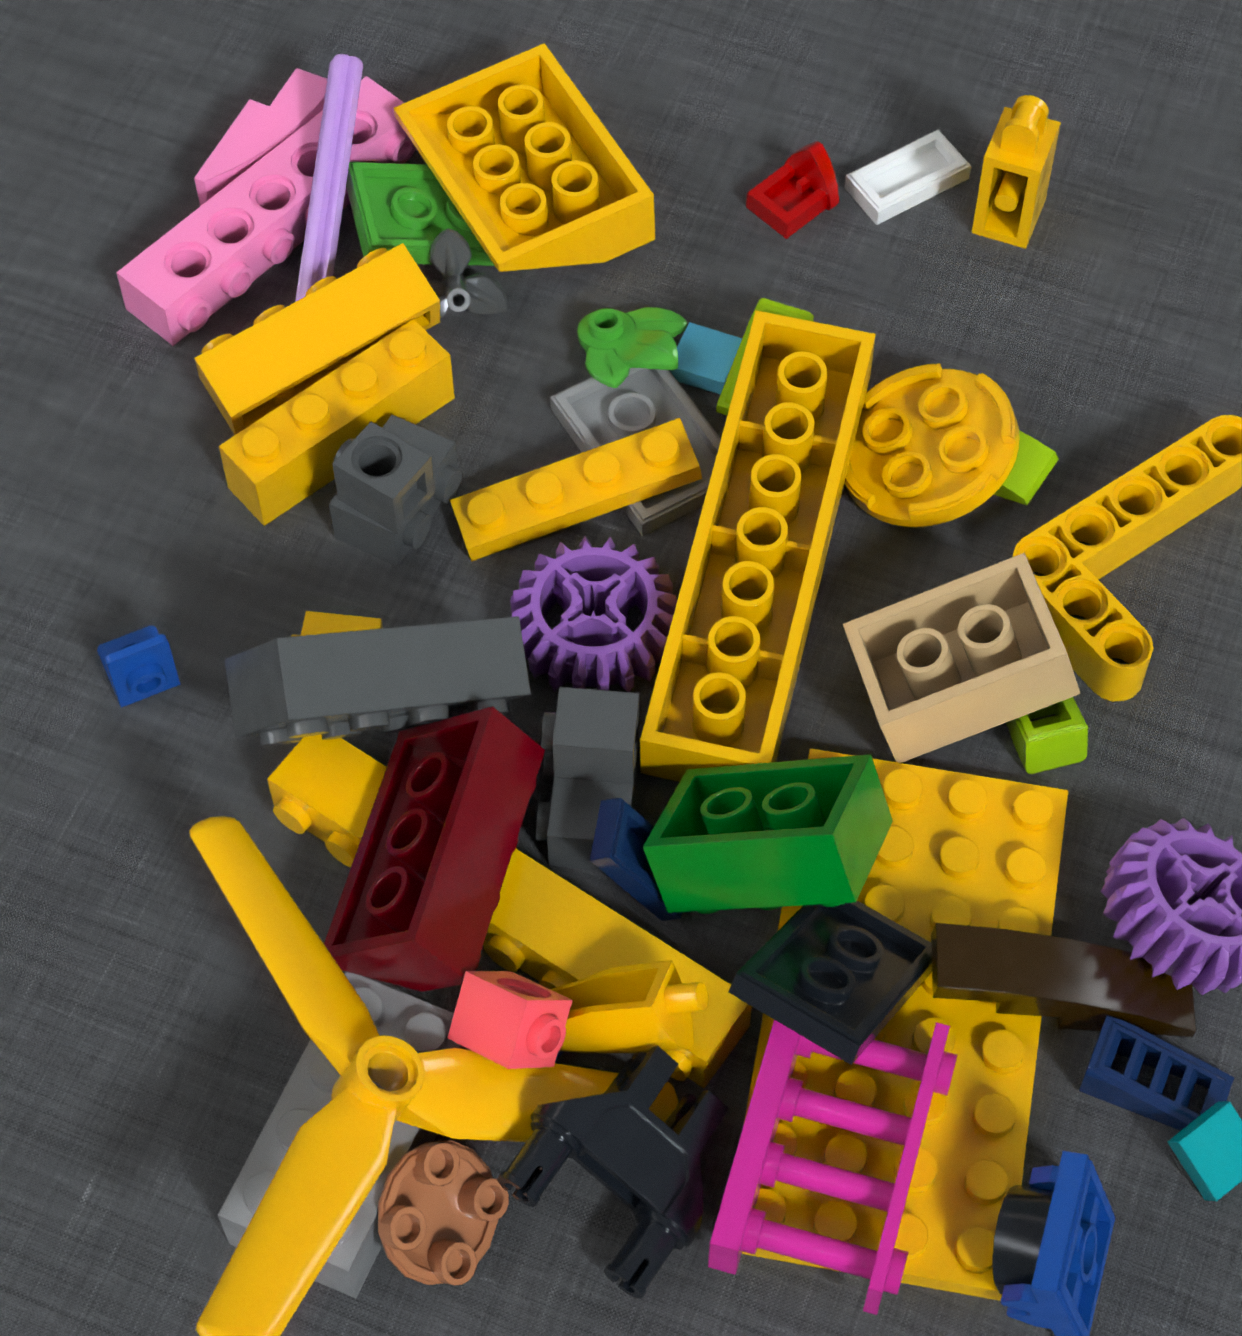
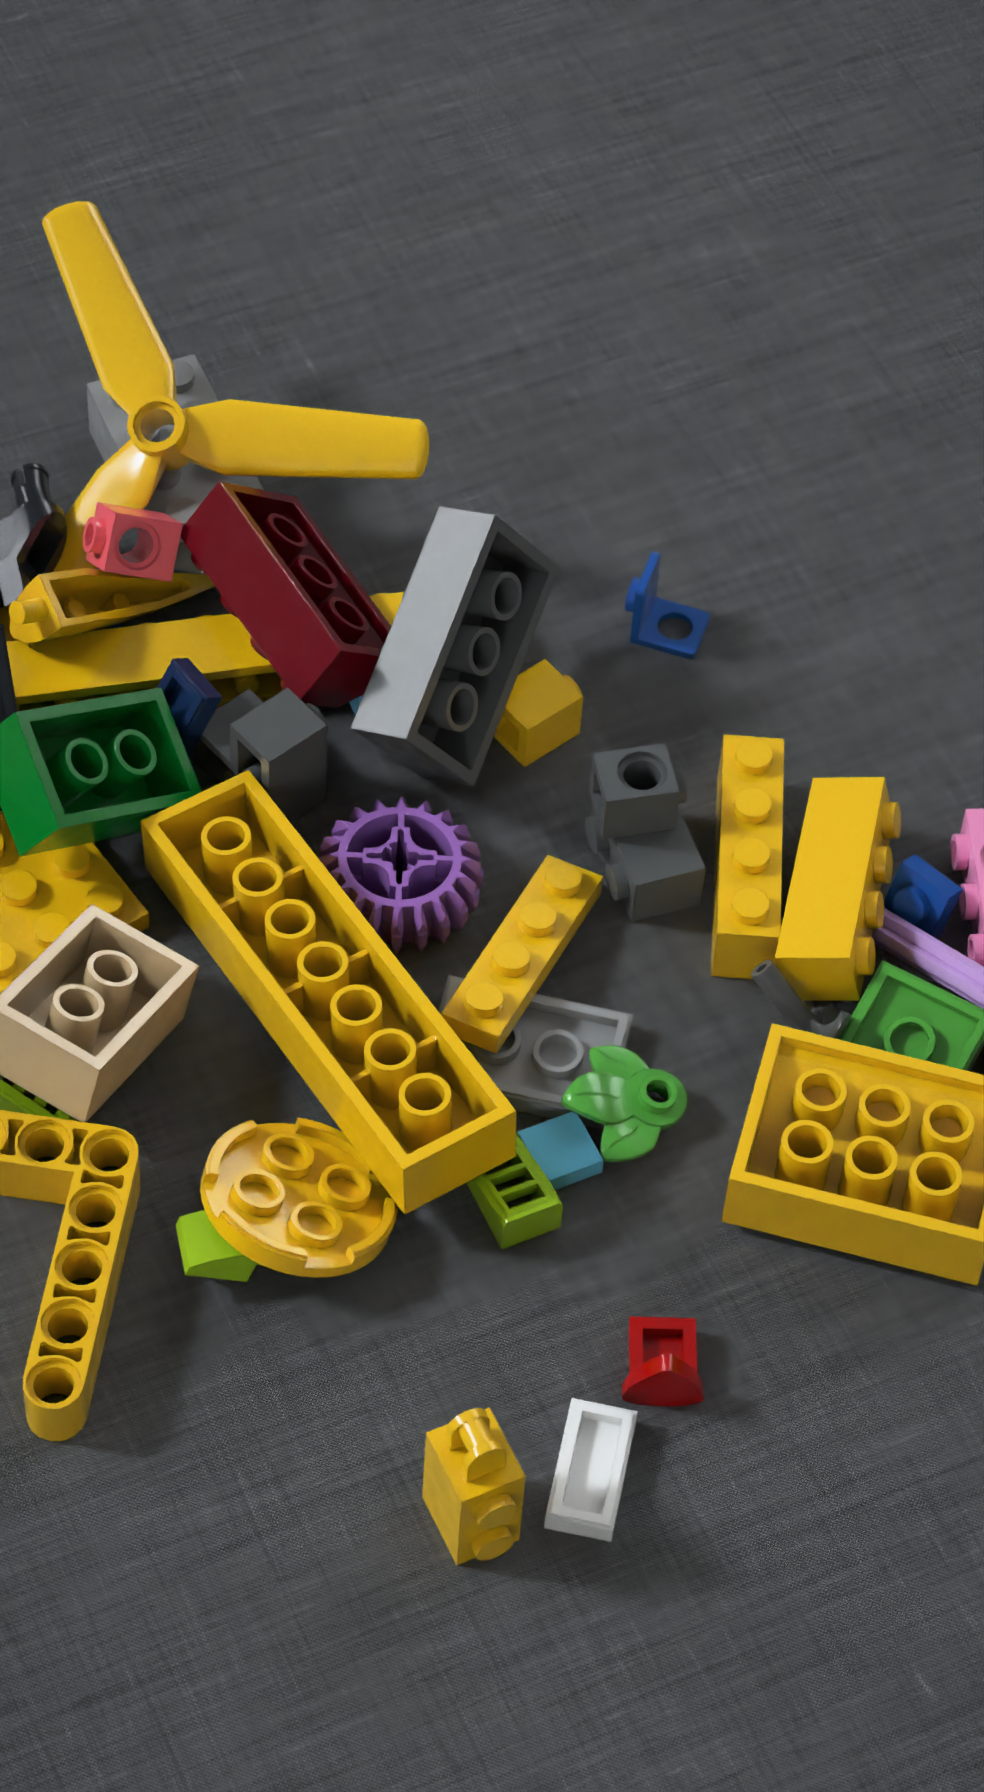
camera: 130 degrees right, 5 degrees down
(261, 291) = (922, 895): none -> blue plate
(439, 1212) = (76, 454): nougat dish -> none

